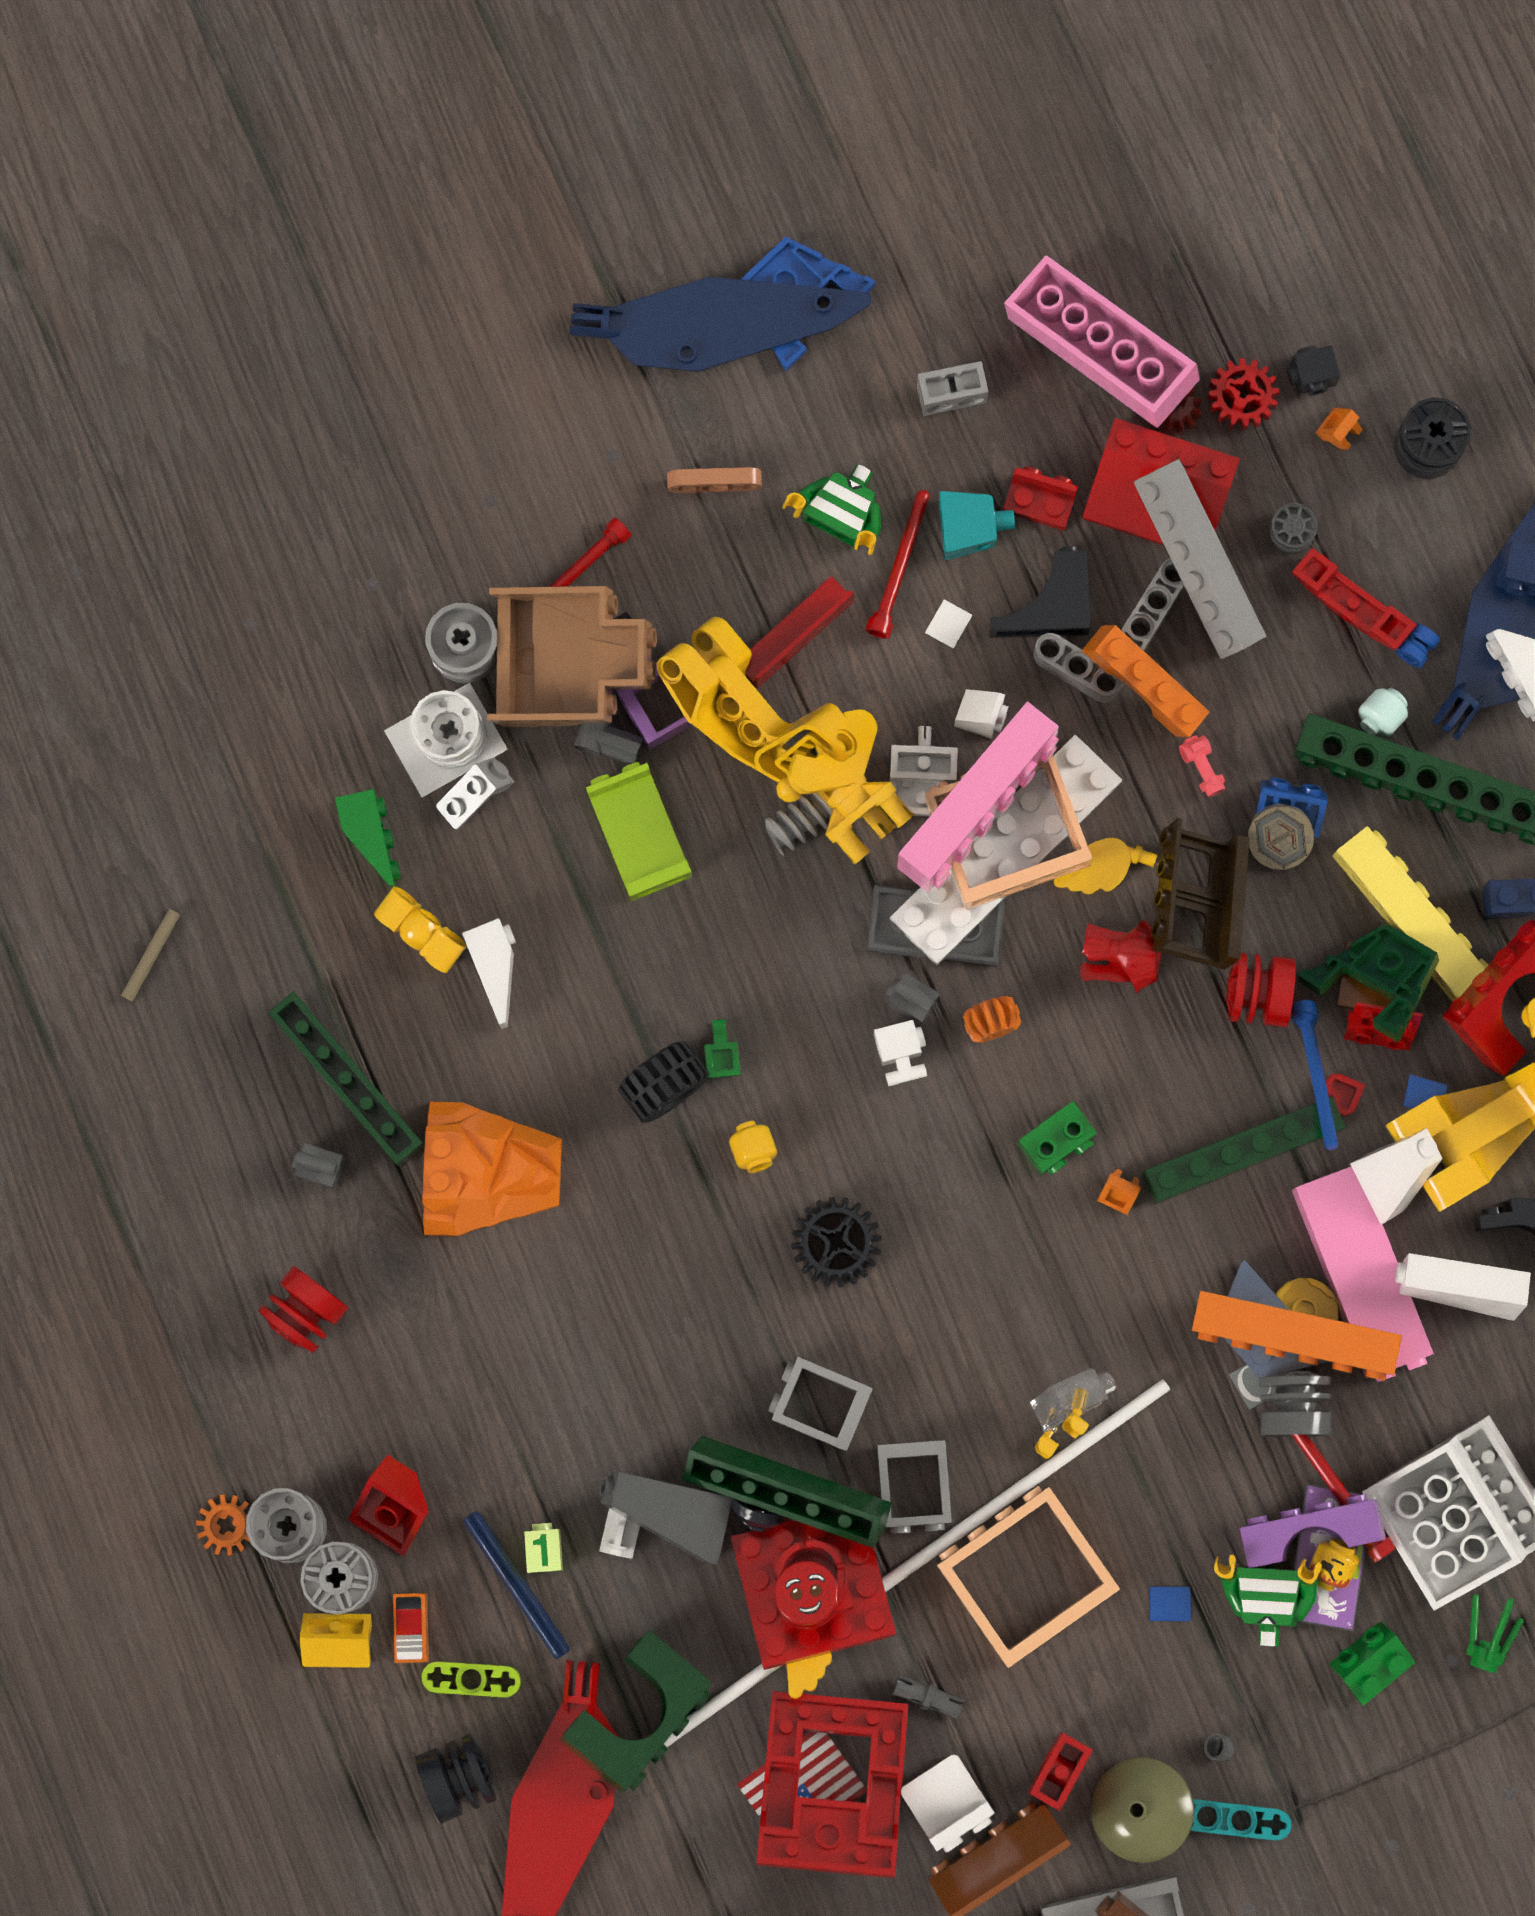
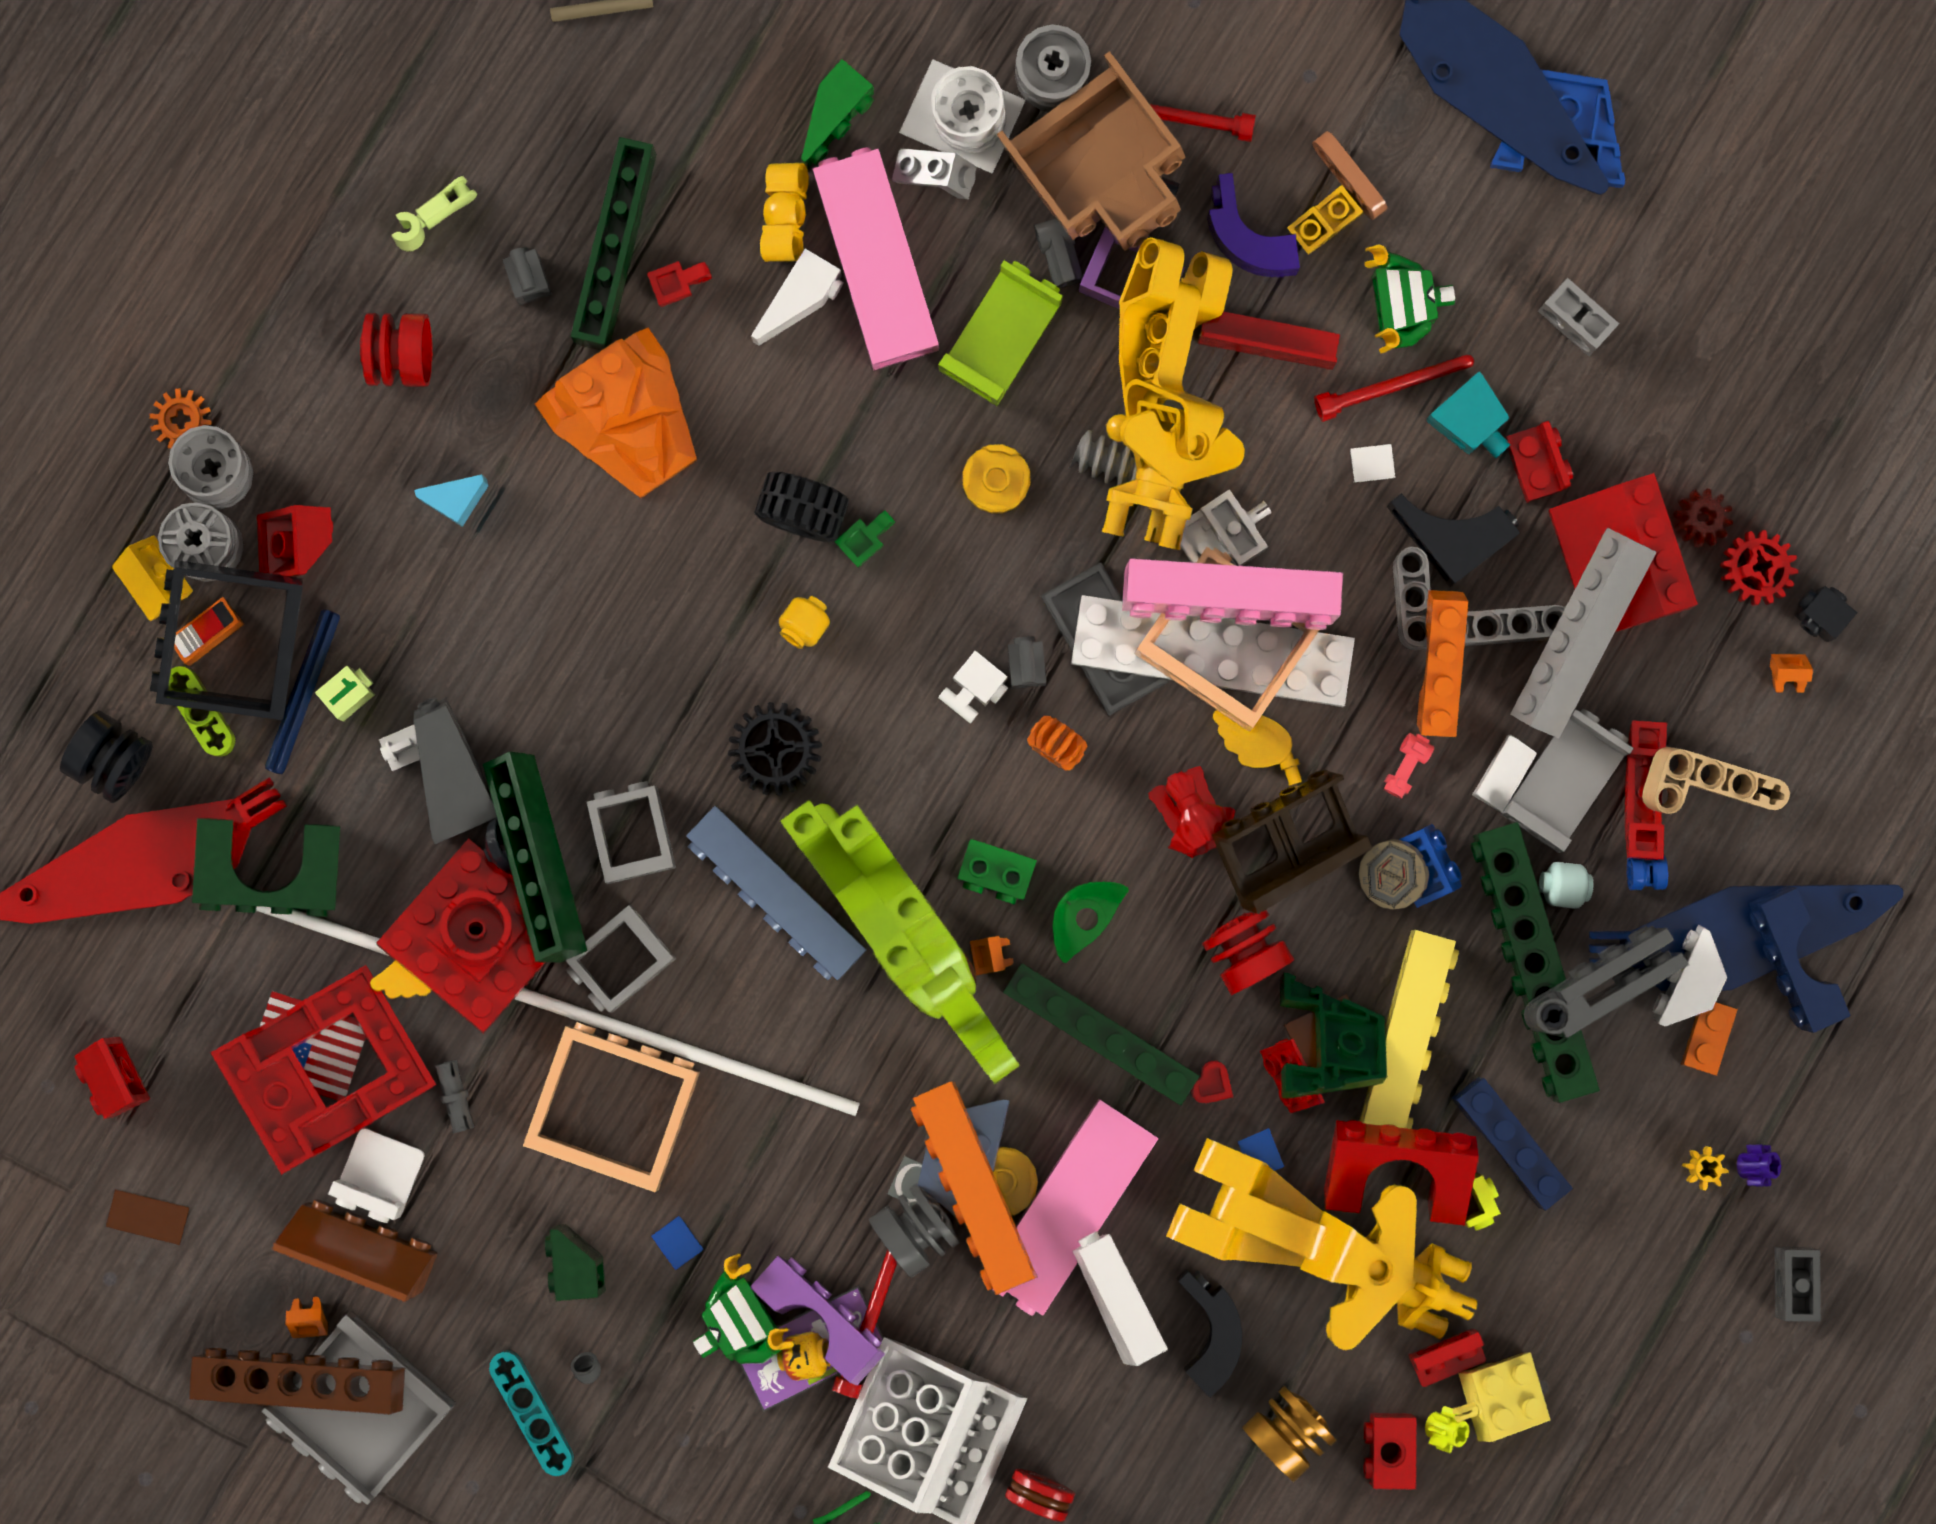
camera: 50 degrees right, 5 degrees up
(213, 1205) = (431, 214): none -> yellowish green piece
(410, 1057) = (673, 283): none -> red plate
(453, 1351) = (454, 498): none -> medium azure slope
(475, 1570) = (216, 701): none -> black window
(508, 885) = (875, 258): none -> bright pink brick
(708, 599) = (1243, 247): none -> dark purple arch
(734, 523) = (1325, 219): none -> yellow slope
(749, 918) = (996, 479): none -> yellow tile
(806, 1595) = (453, 934): red head -> none
(951, 1323) = (776, 893): none -> sand blue brick
(981, 712) = (1313, 545): white slope -> none
(1052, 1237) = (898, 925): none -> lime animal
(1059, 1771) = (470, 1249): red brick -> none
(1065, 1404) = (779, 1037): clear torso -> none
(1102, 341) = (1713, 413): bright pink brick -> none
(1134, 1693) = (576, 1266): none -> dark green slope
(1135, 1075) = (1100, 897): none -> green piece
(1165, 1803) = (509, 1348): olive dish -> none
(1262, 697) = (1504, 773): none -> white slope
(1293, 528) = (1671, 694): dark grey wheel -> none
(1302, 654) = (1567, 780): none -> light grey panel
(1305, 1014) = (1254, 1004): blue piece -> none
(1372, 1662) = (748, 1445): green bracket -> none
(1386, 540) = (1718, 782): none -> tan beam
(1397, 1173) = (1172, 1176): white slope -> none
(1426, 455) = (1825, 771): black wheel -> none
(1478, 777) = (1566, 1001): none -> dark grey hinge

